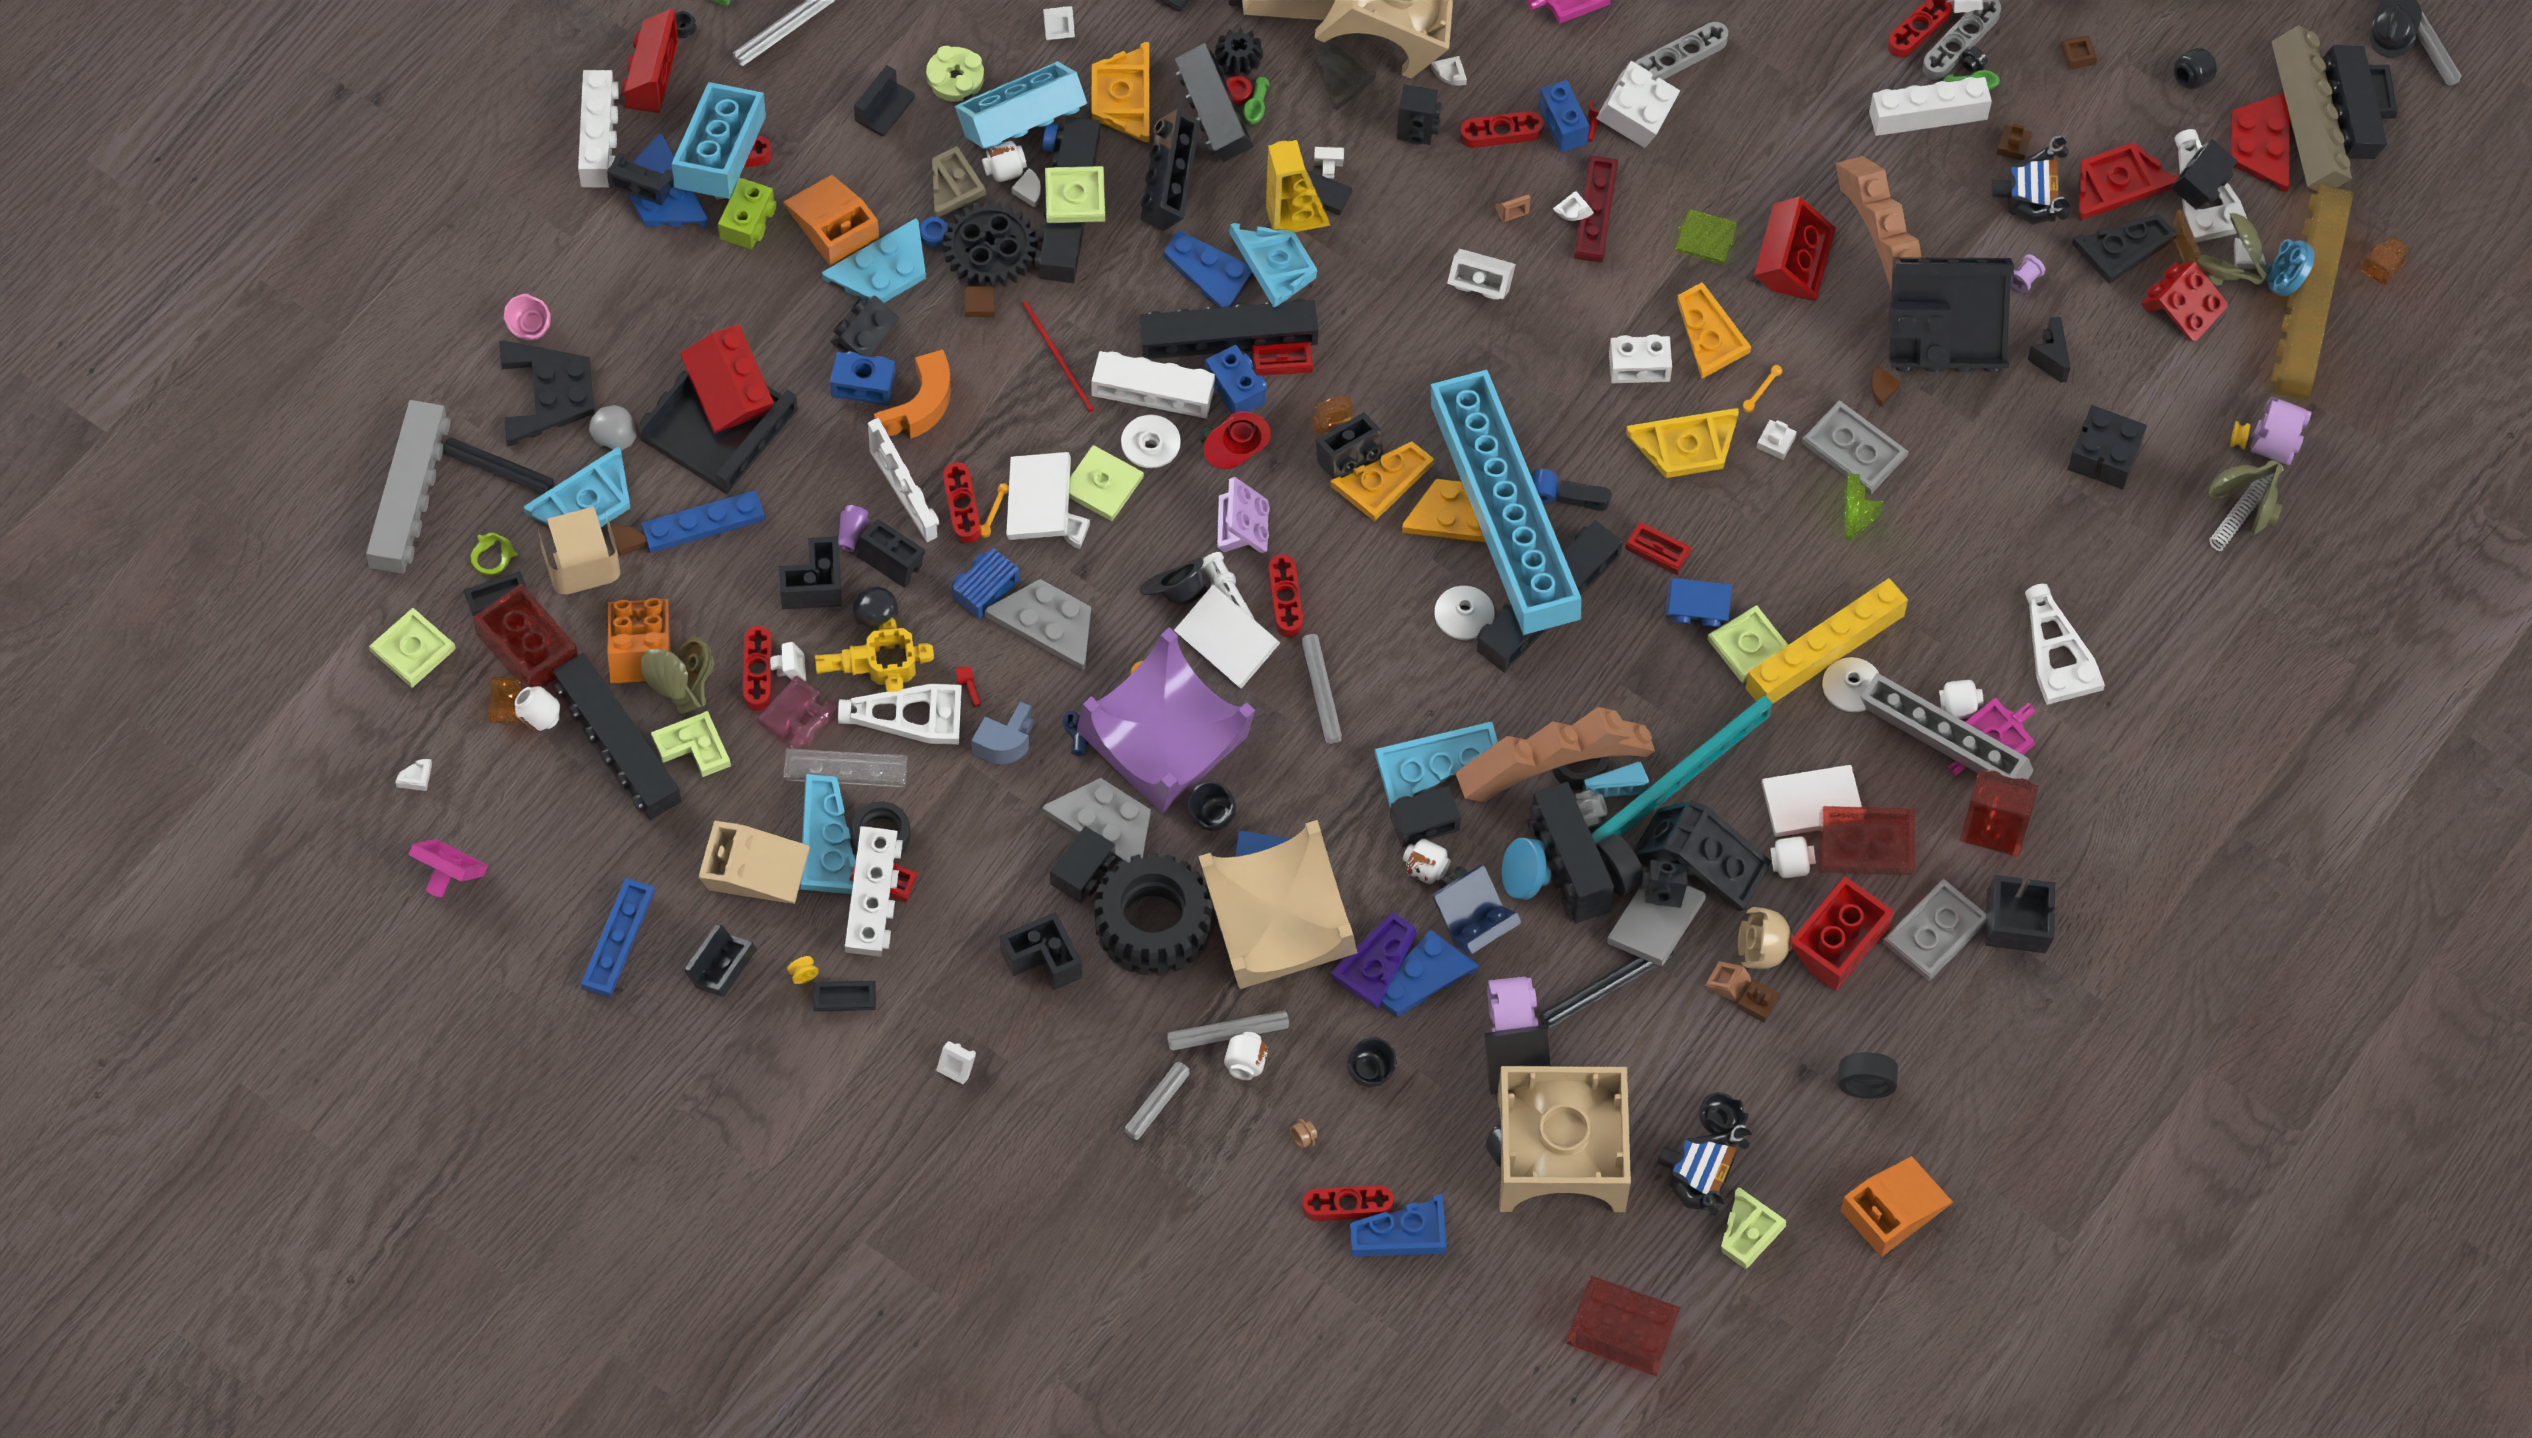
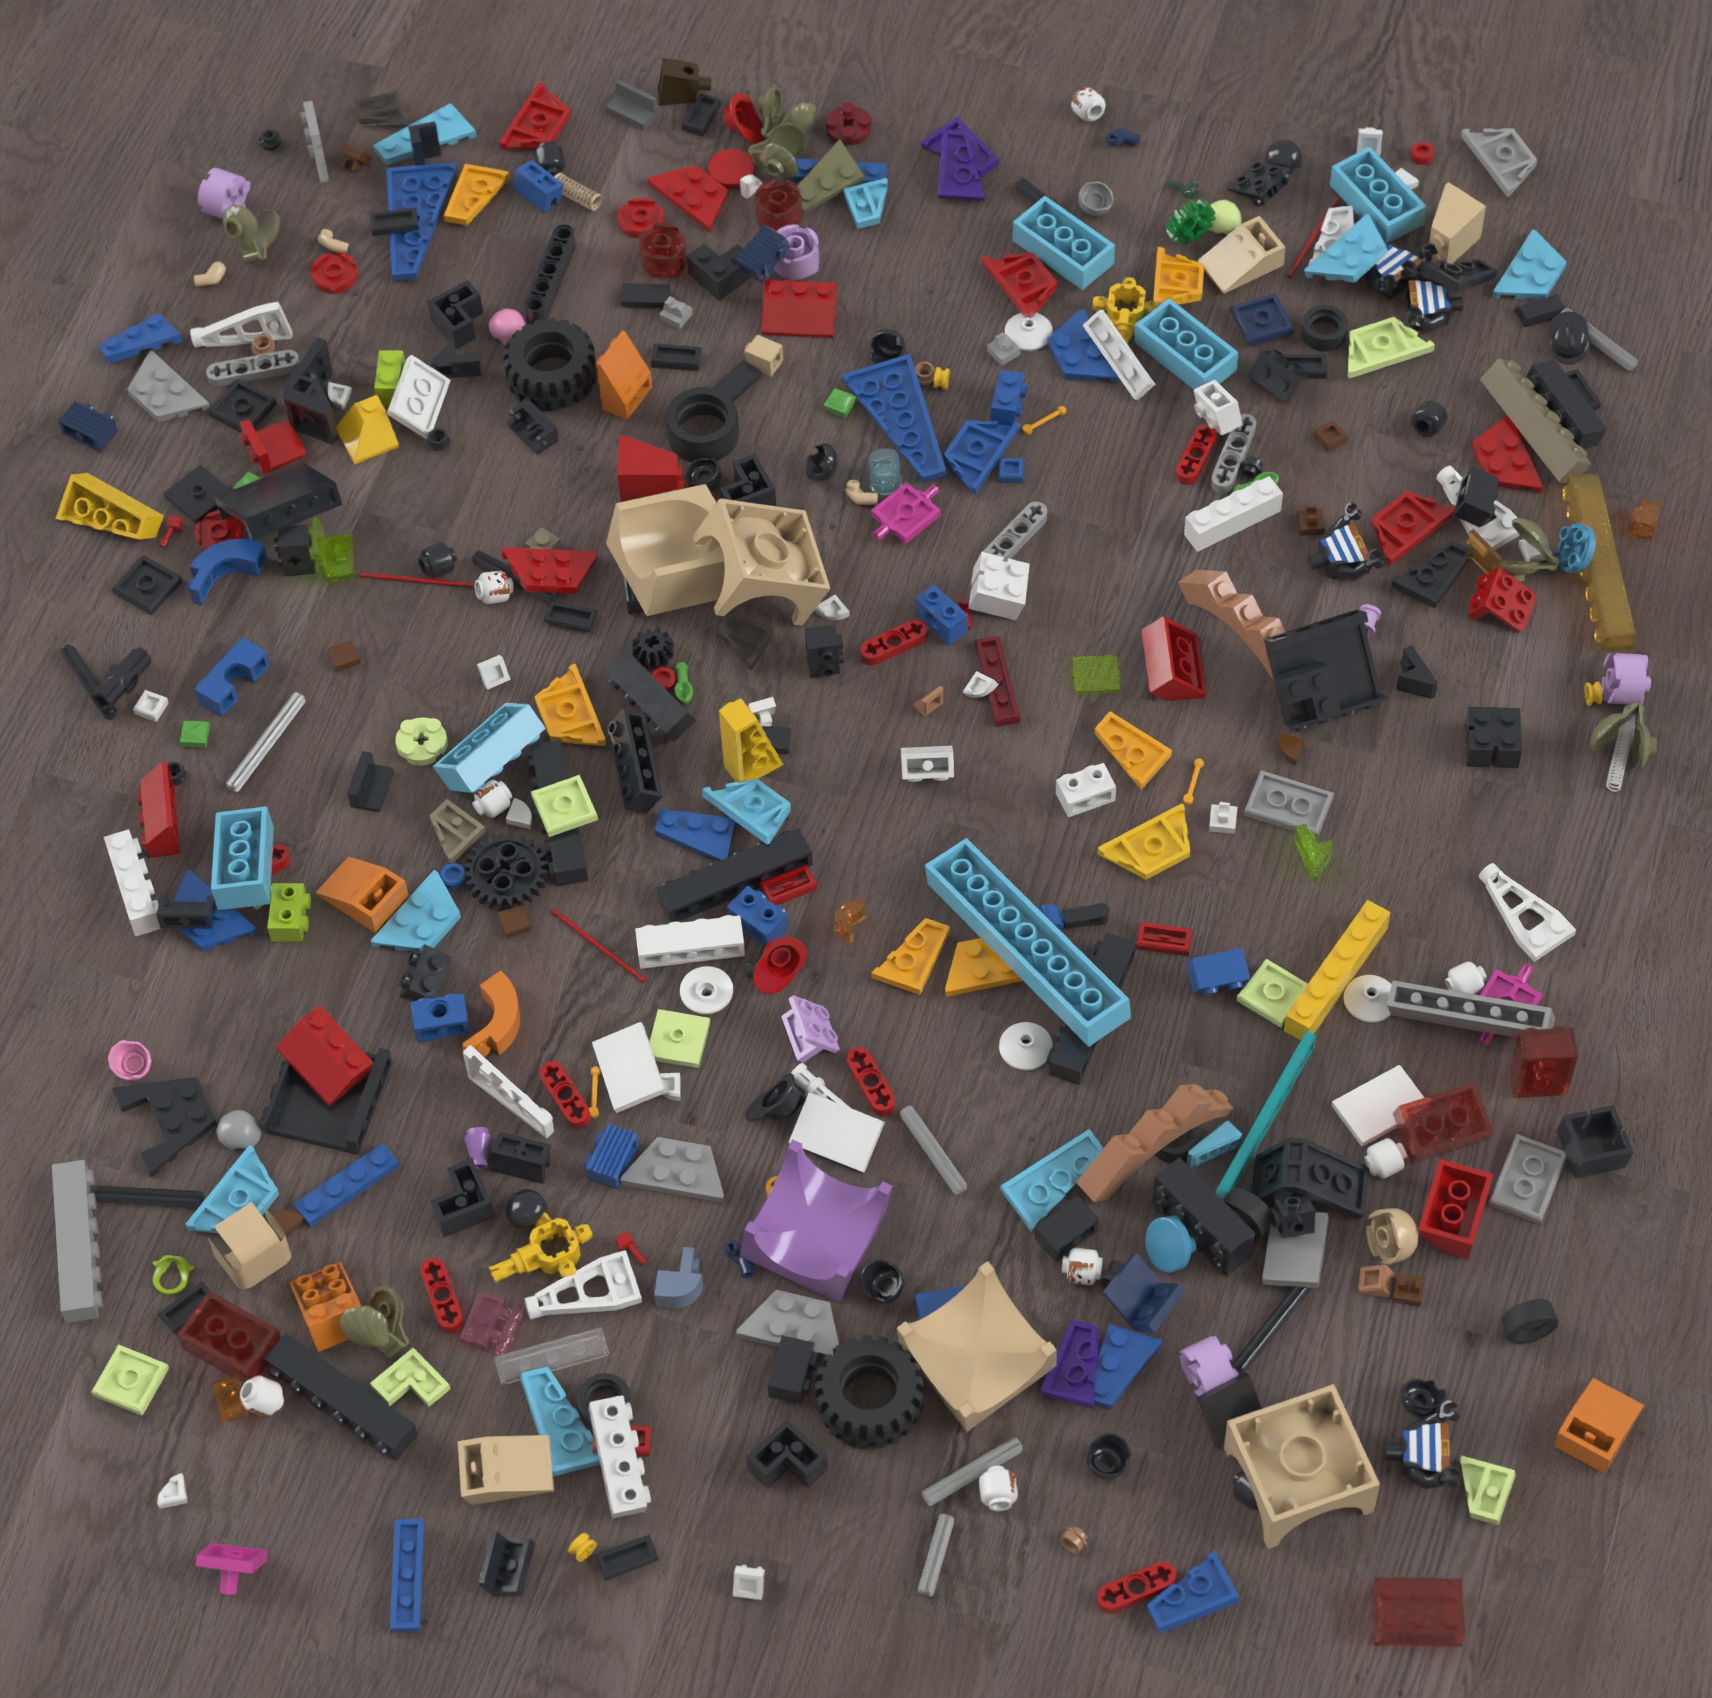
camera: 15 degrees left, 5 degrees down
(790, 662) = (469, 1281): white tile -> none
(1050, 137) = (523, 767): blue tile -> none
(1349, 446) = (876, 939): black brick -> none
(1591, 807) = (1204, 1171): light grey gear -> none

